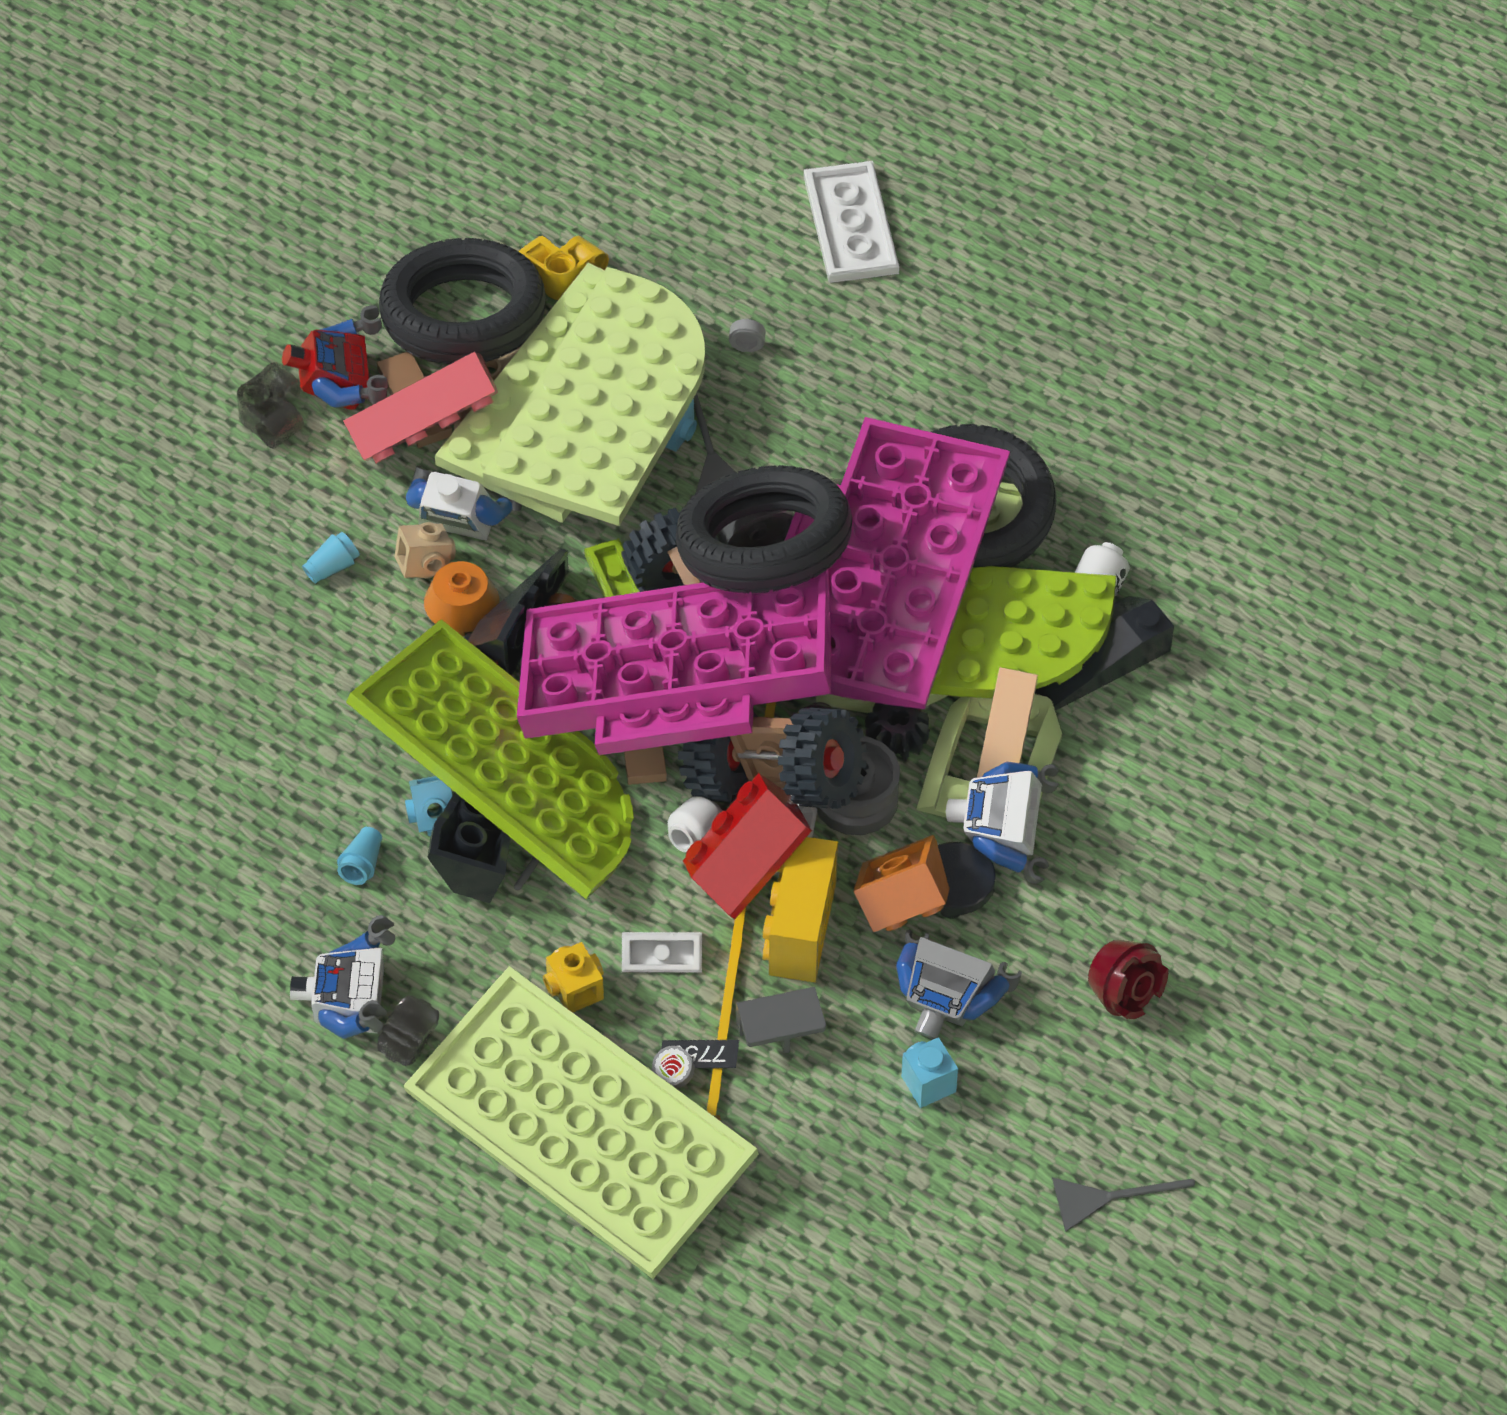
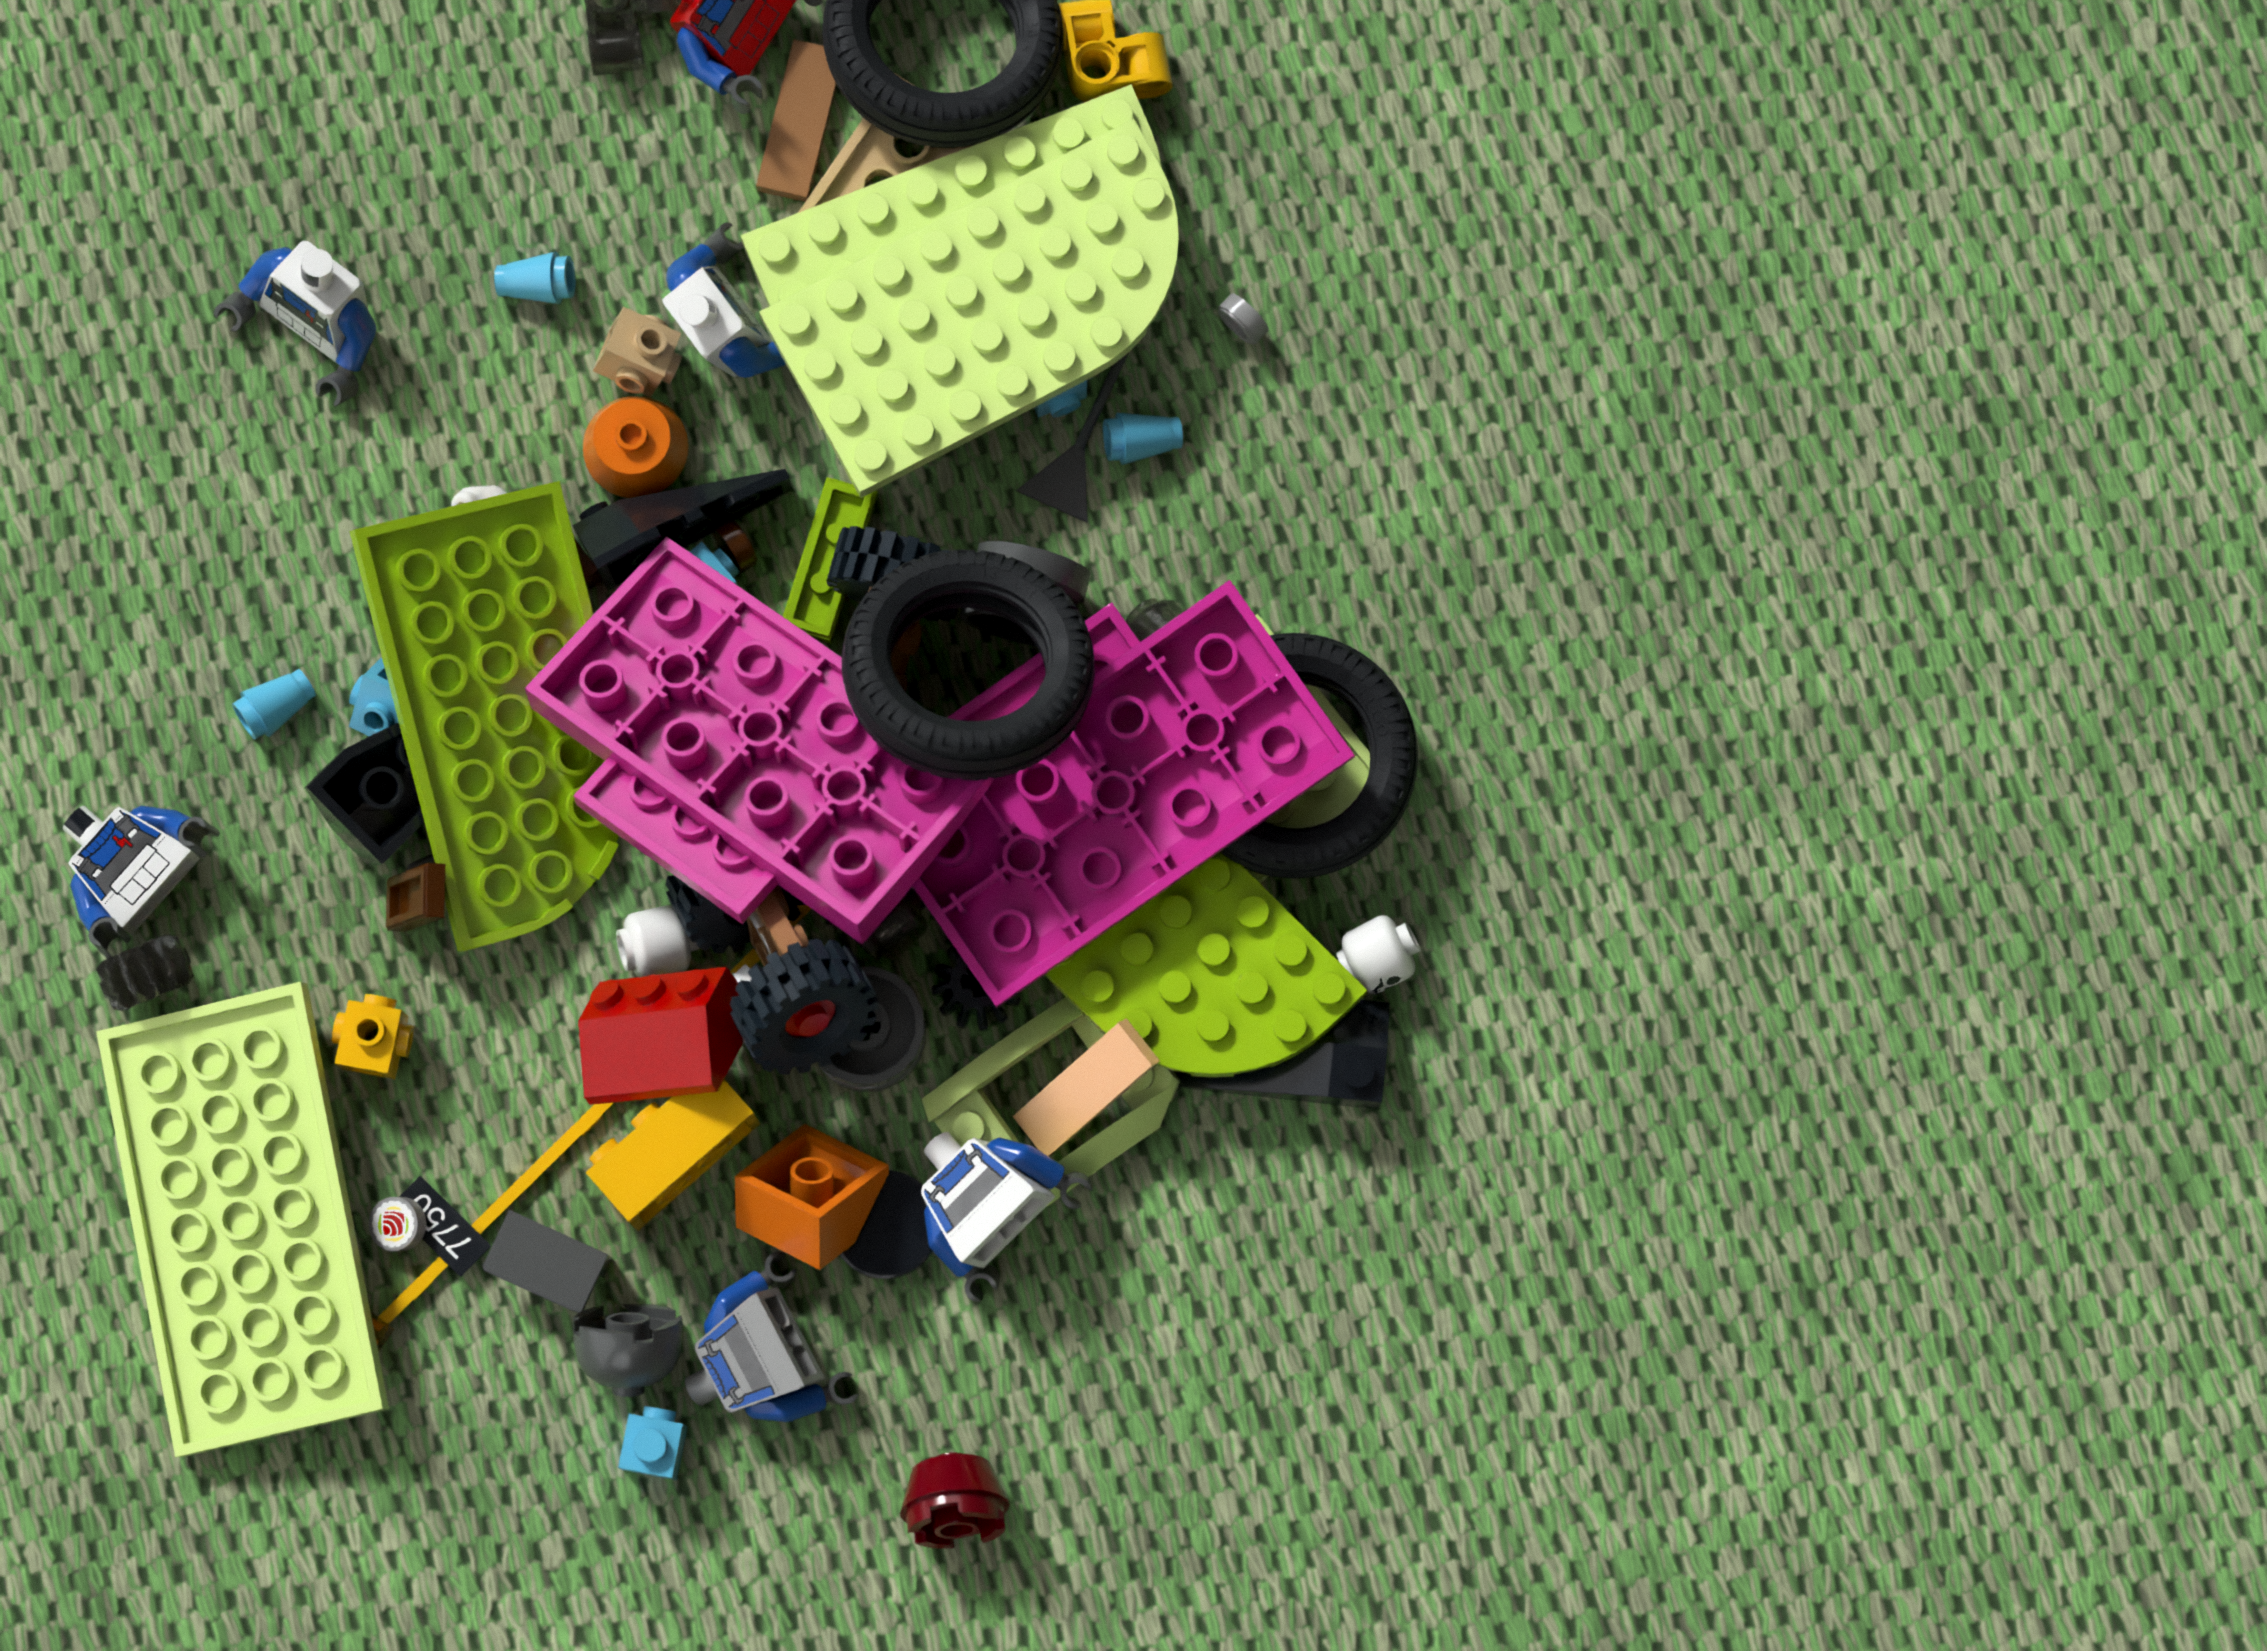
camera: 35 degrees right, 25 degrees up
(212, 639) = (316, 302): none -> torso
(421, 407) = (773, 159): coral slope -> none
(538, 885) = (415, 897): none -> reddish brown tile
(661, 951) = (503, 1066): white slope -> none
(741, 423) = (1140, 436): none -> medium azure cone
(851, 222) = (1504, 238): white tile -> none
(869, 1031) = (628, 1347): none -> dark grey cylinder

